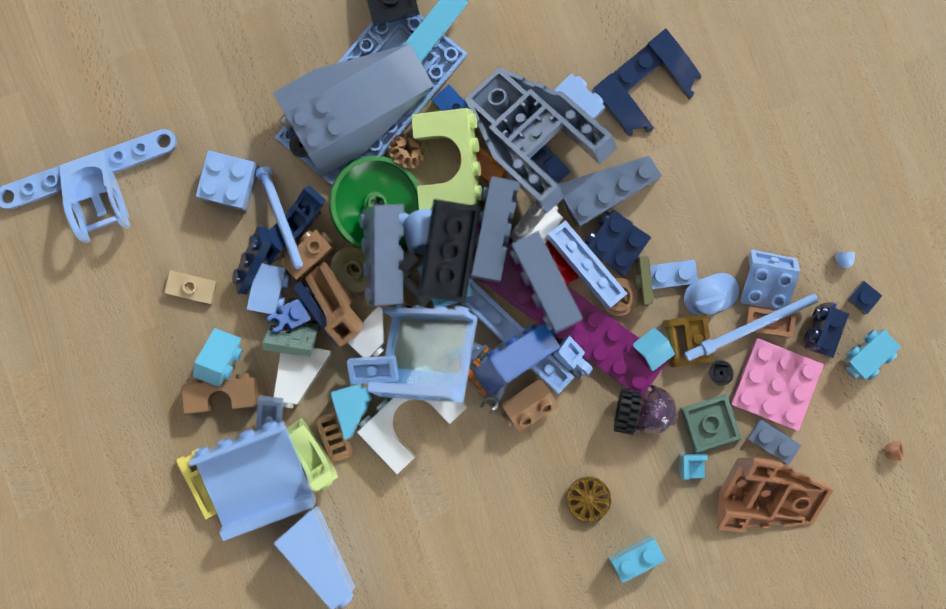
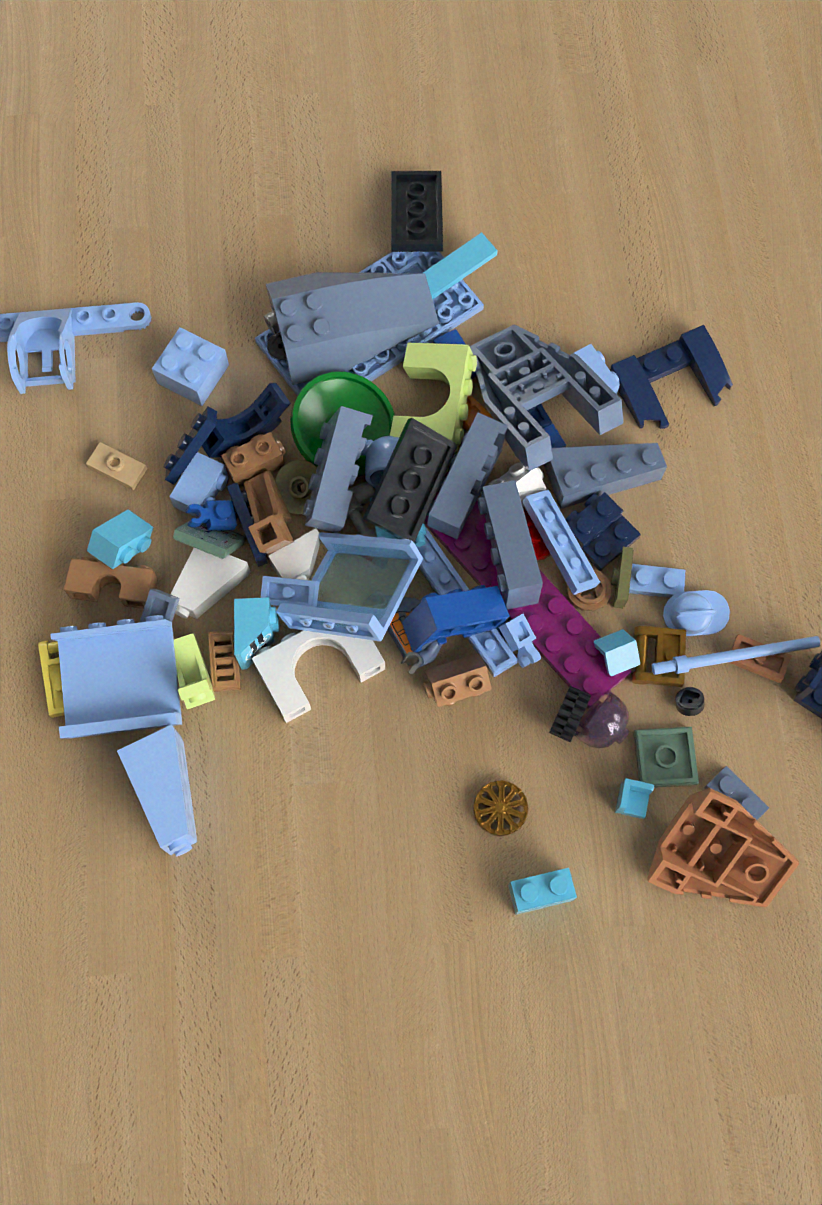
camera: 15 degrees right, 15 degrees down
(265, 173) = (233, 371): light blue bar -> none
(401, 156) = (383, 380): medium nougat gear -> none
(770, 280) = (766, 612): light blue bracket -> none
(777, 384) = (753, 732): bright pink plate -> none

